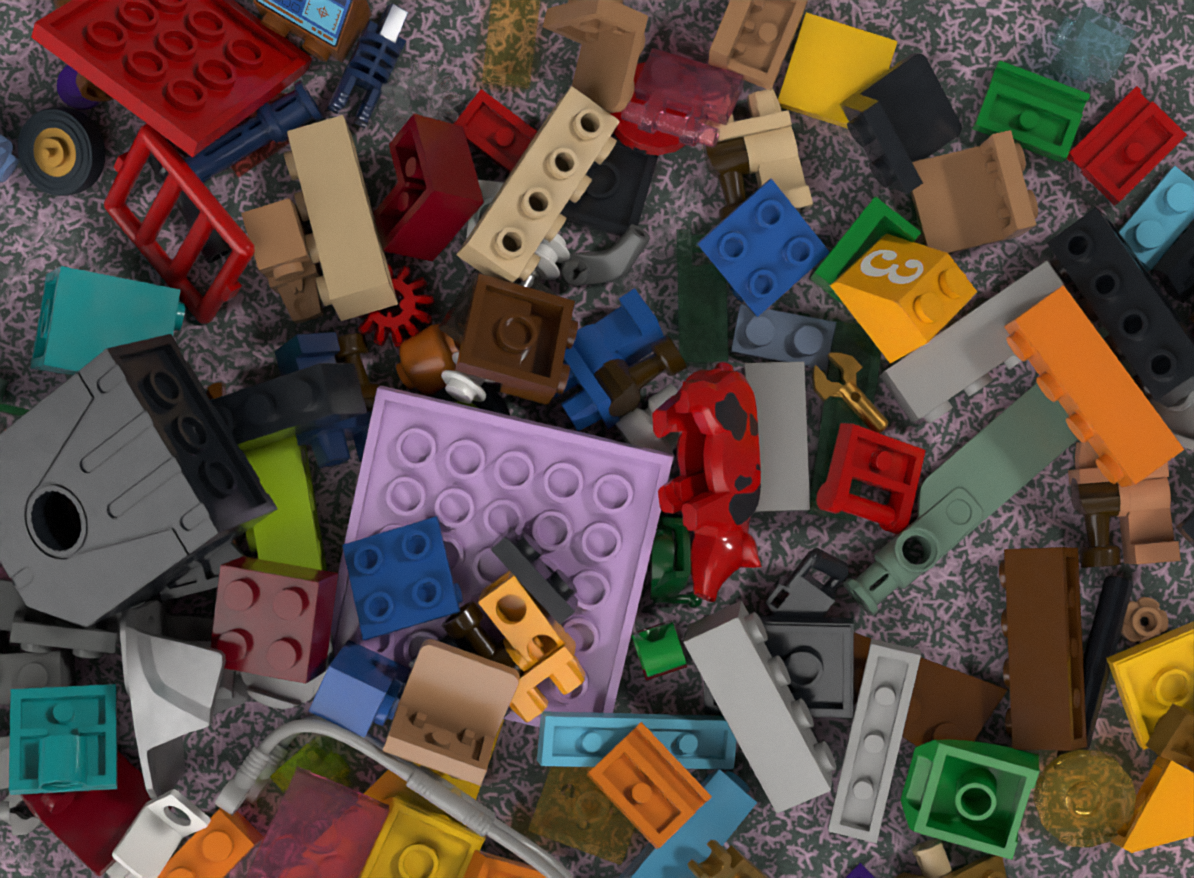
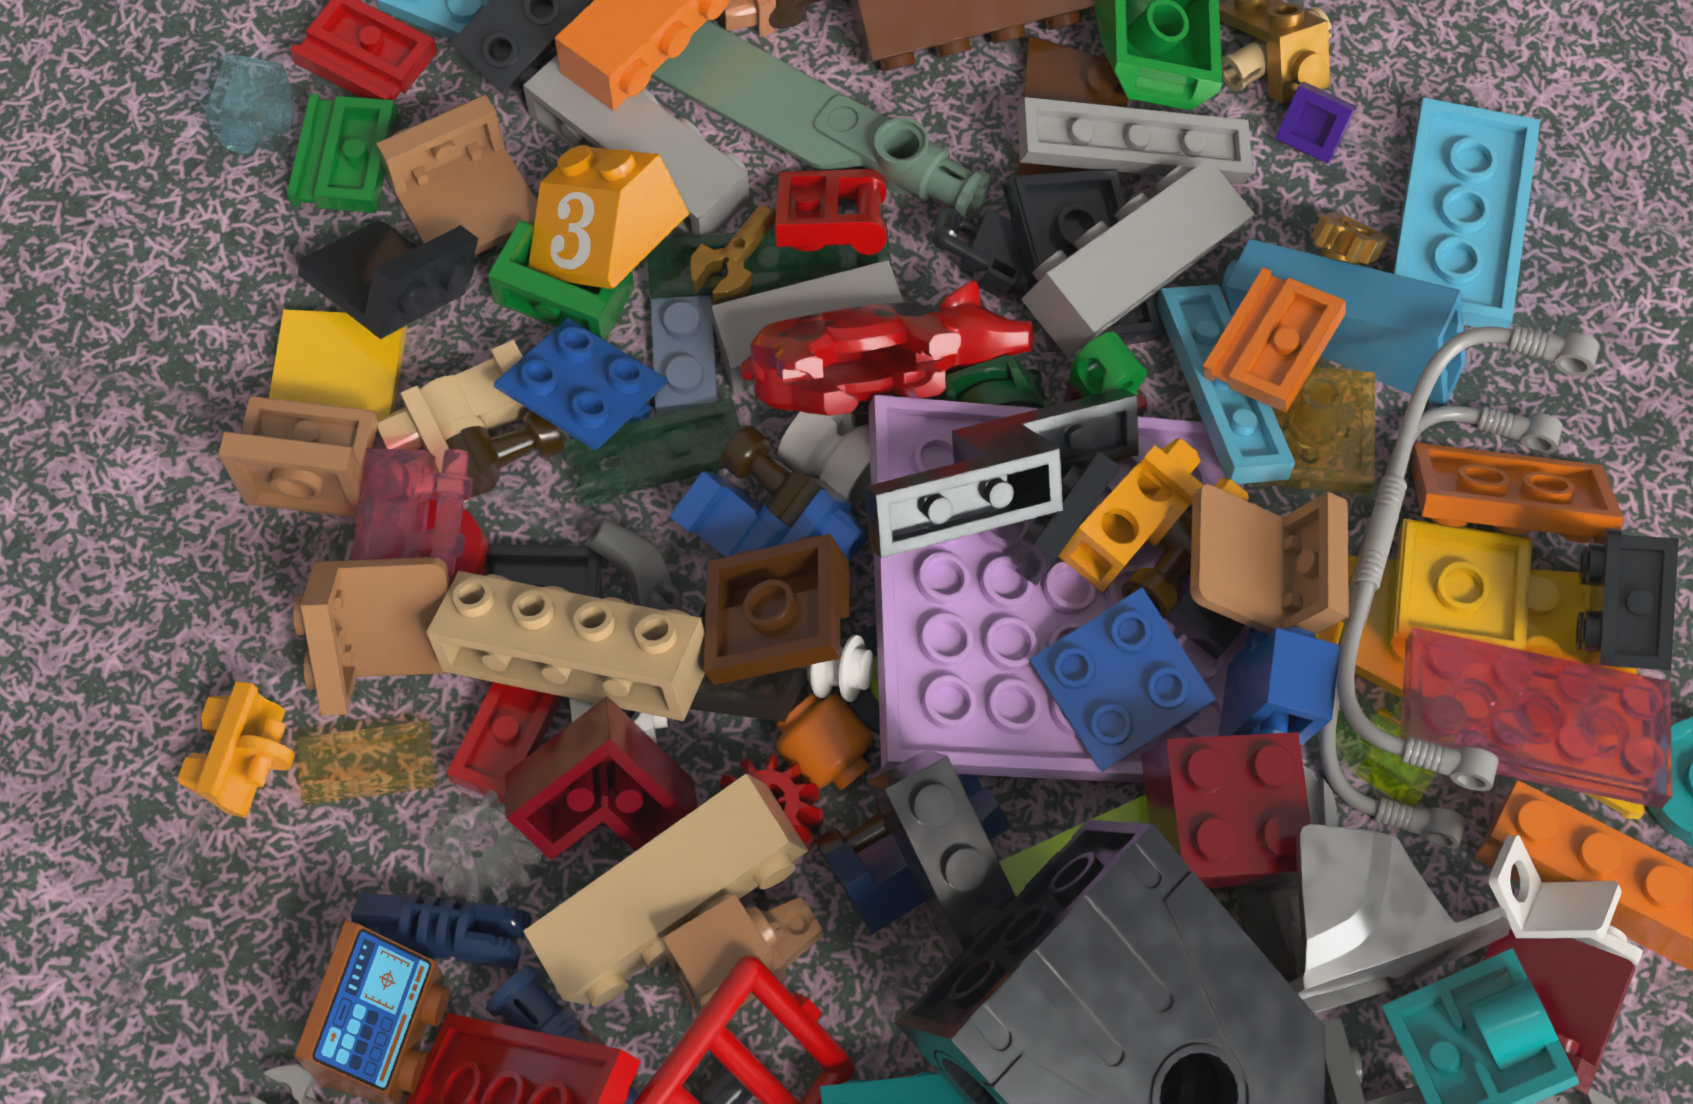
camera: 105 degrees left, 20 degrees down
(572, 533) = (1000, 472): none -> black bracket

